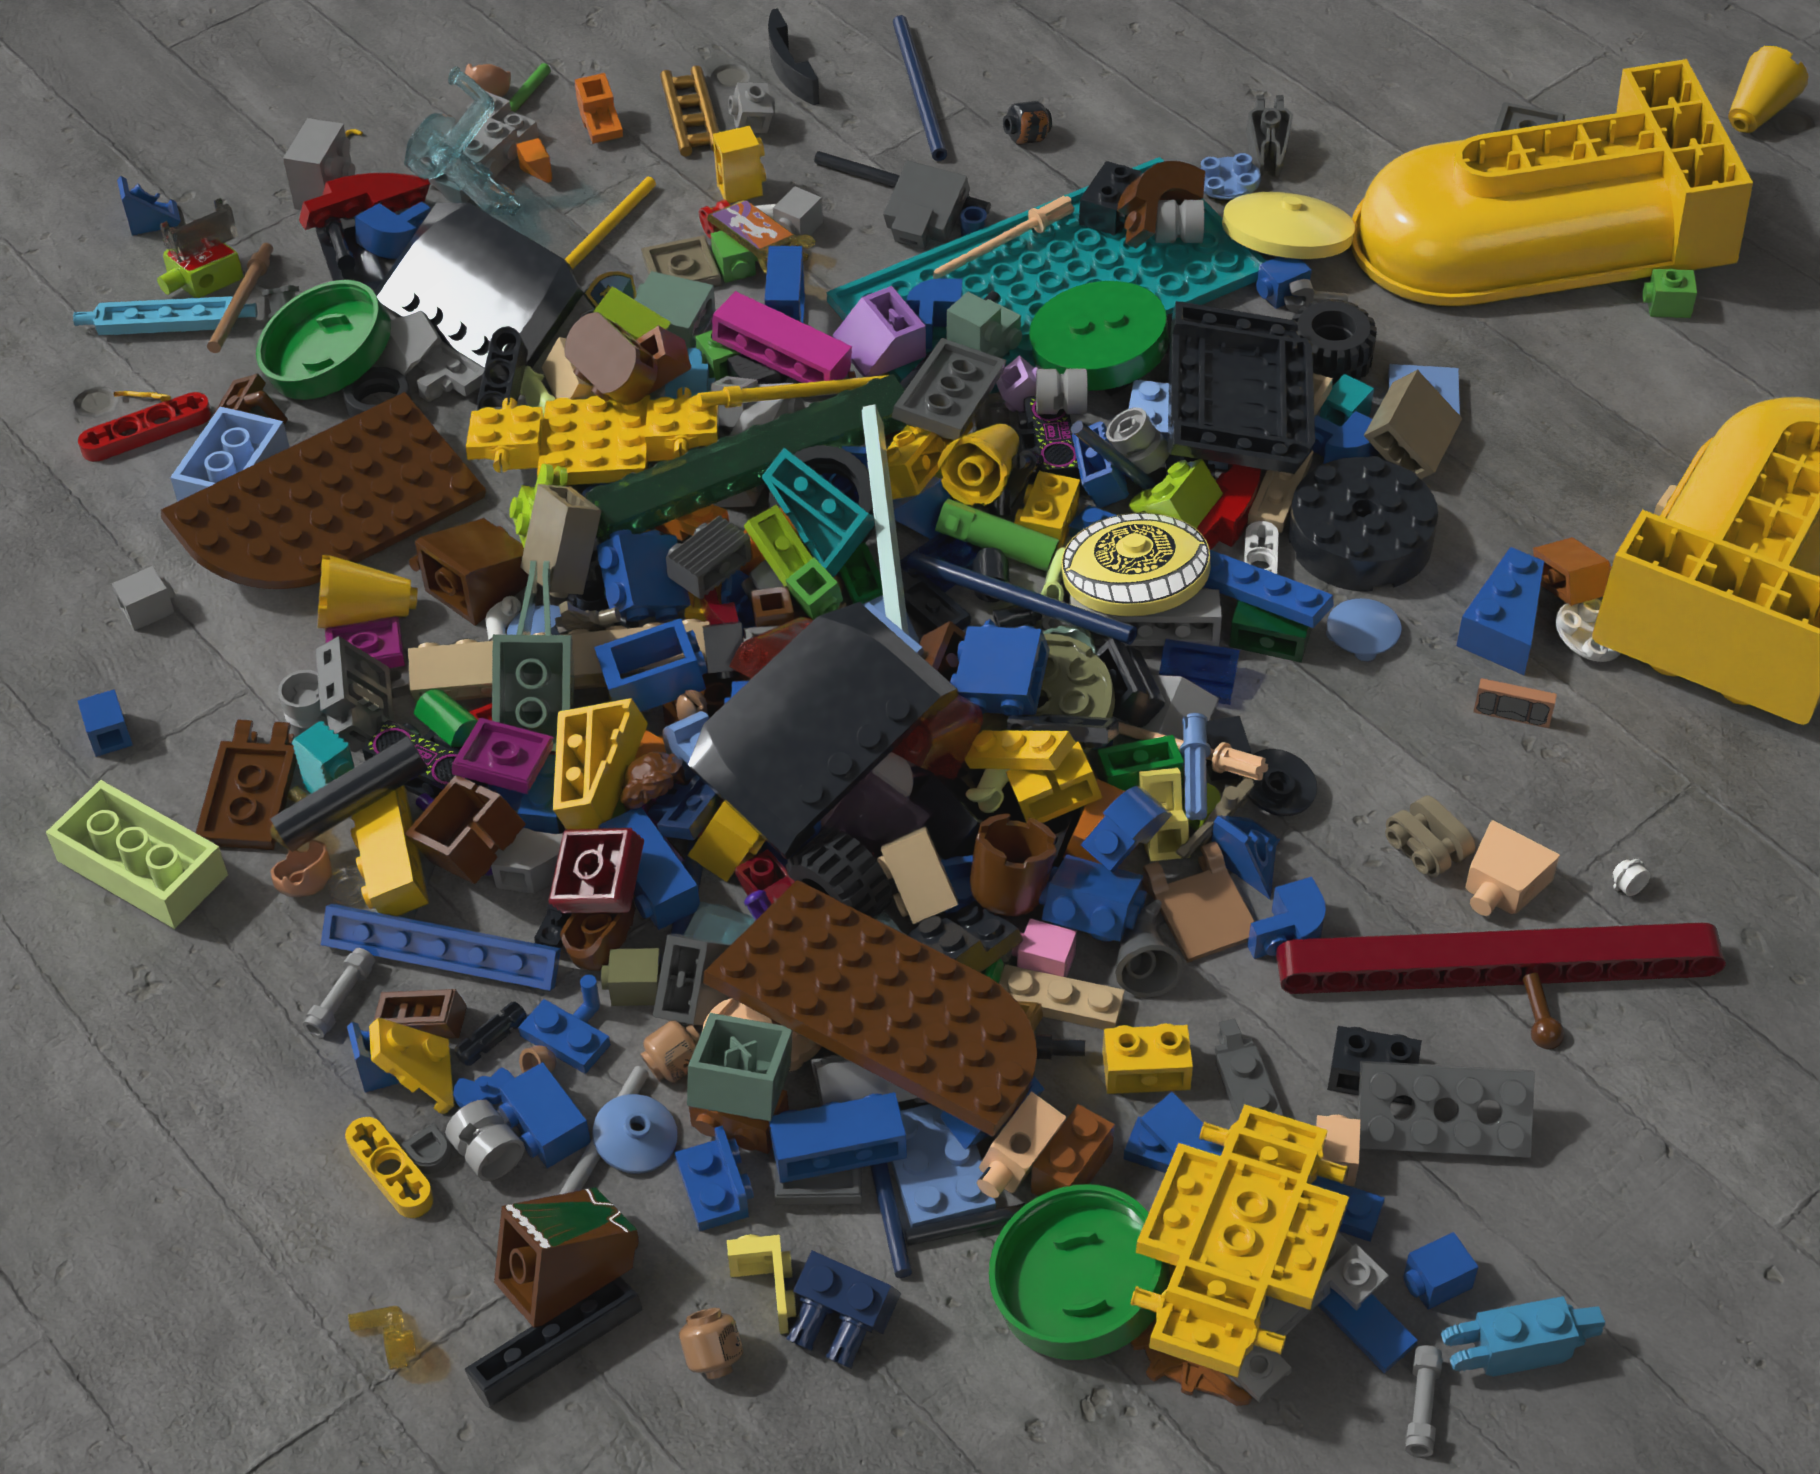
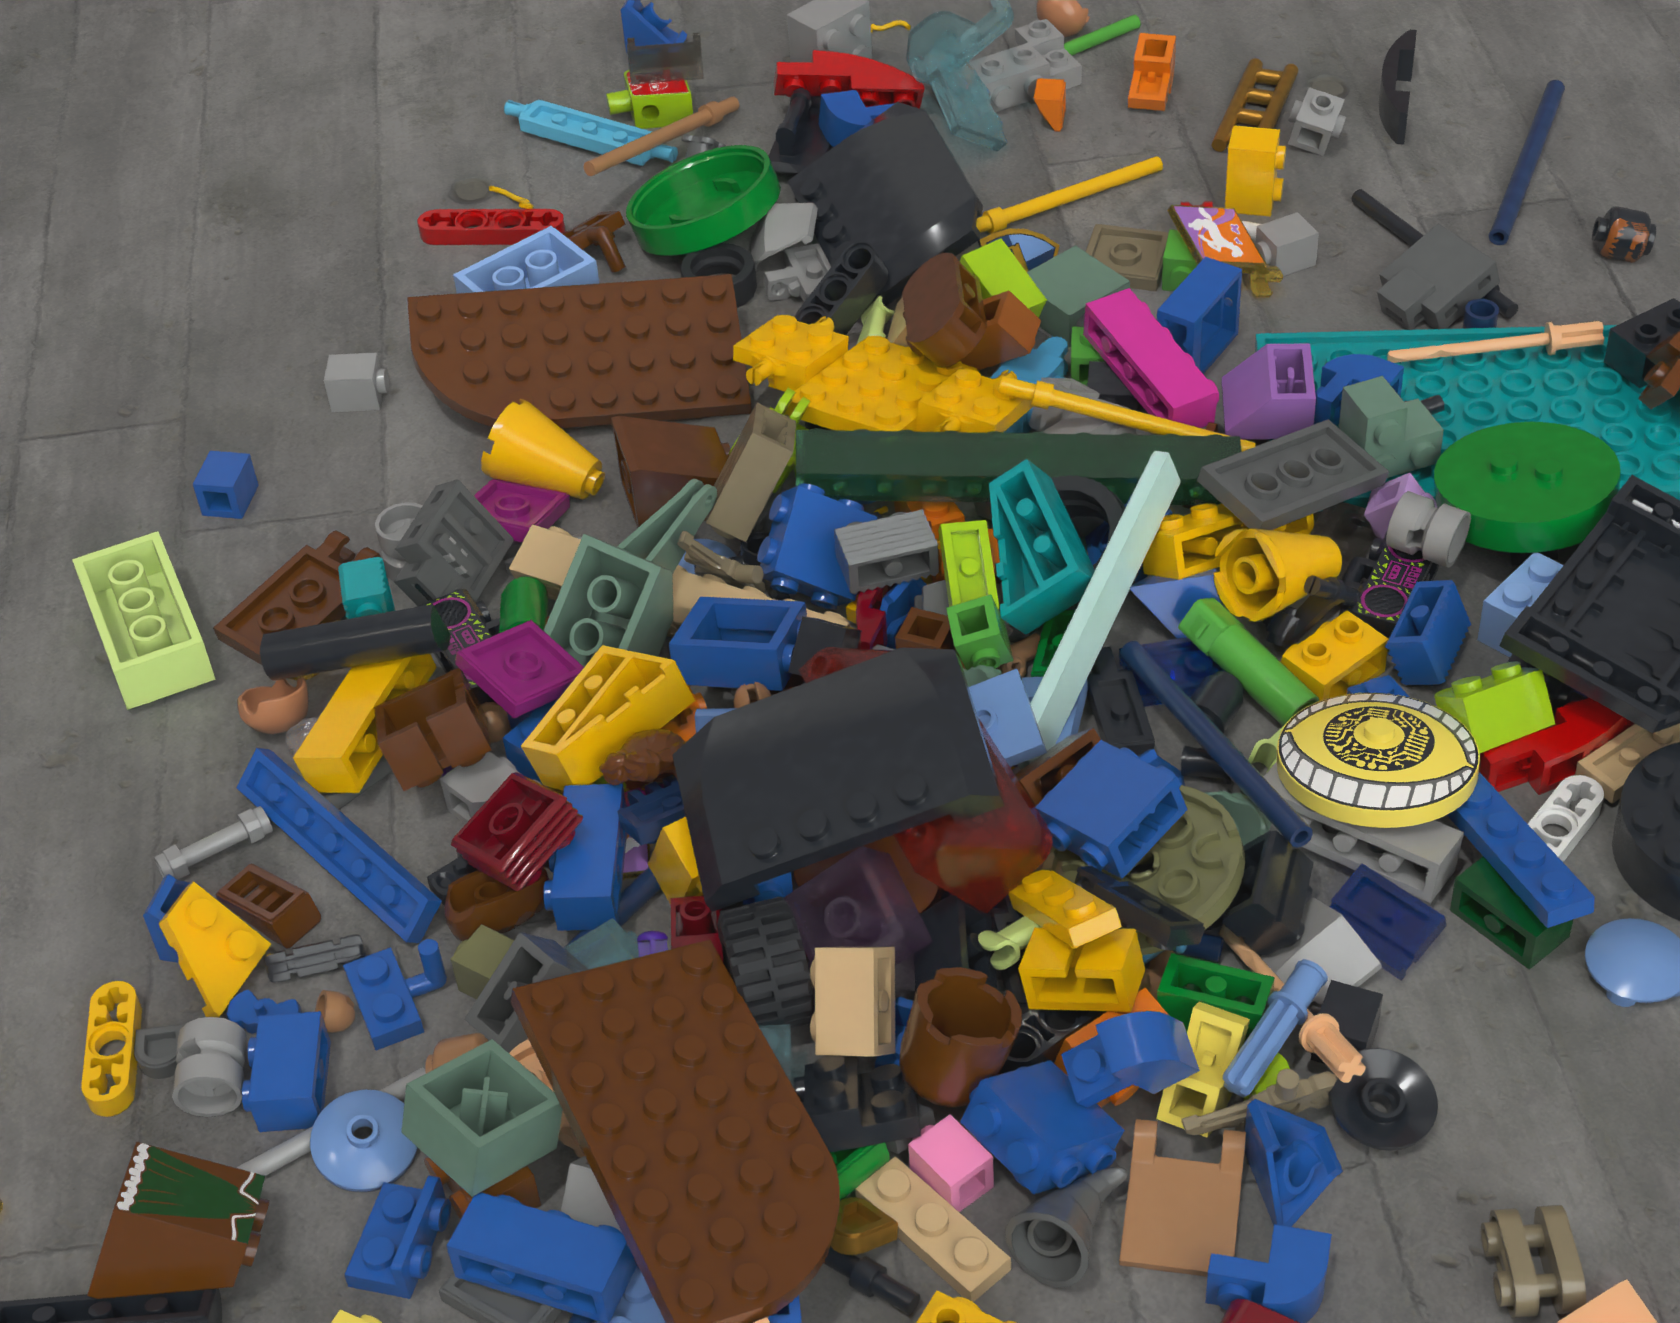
camera: 35 degrees right, 5 degrees down
(1112, 455) = (1429, 619): dark blue bar -> none
(1138, 439) = (1483, 616): light grey wheel -> none

